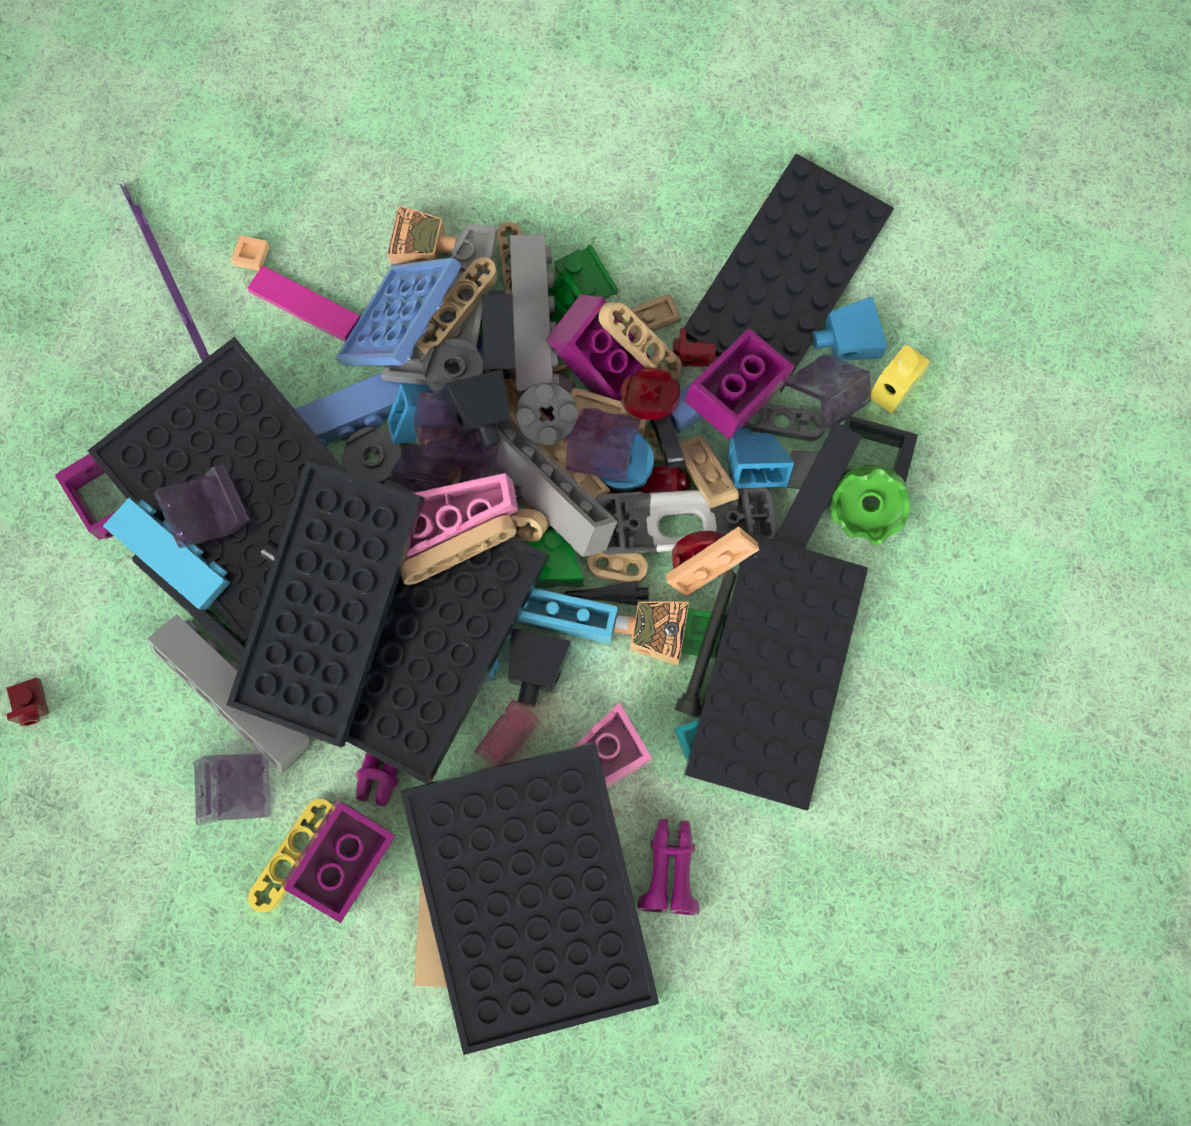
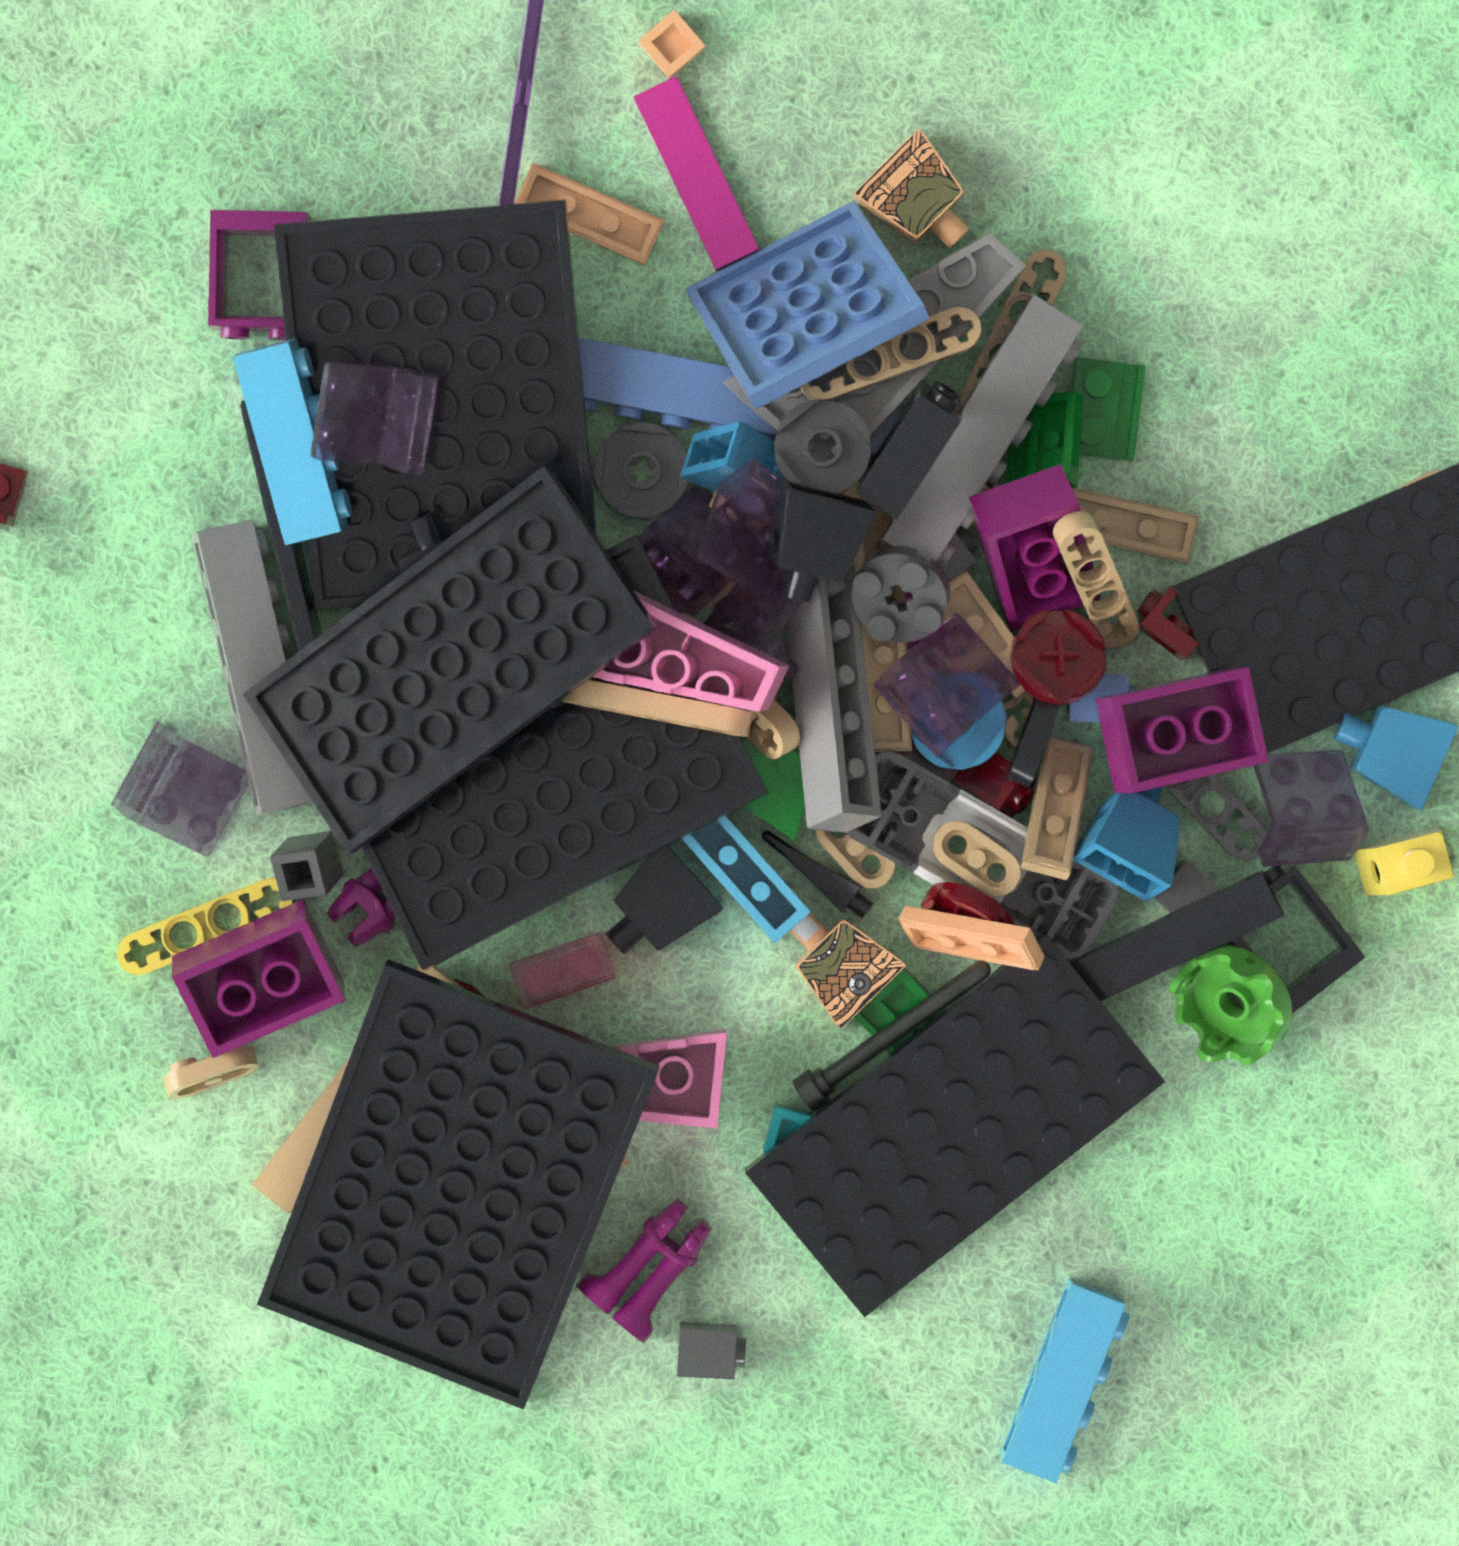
camera: 30 degrees right, 15 degrees up
(278, 352) = (595, 214): none -> light nougat tile
(326, 778) = (306, 866): none -> dark grey brick
(342, 943) = (193, 1076): none -> tan plate
(684, 520) = (977, 858): none -> tan plate
(738, 891) = (709, 1351): none -> dark grey brick
(940, 767) = (1063, 1381): none -> medium azure brick

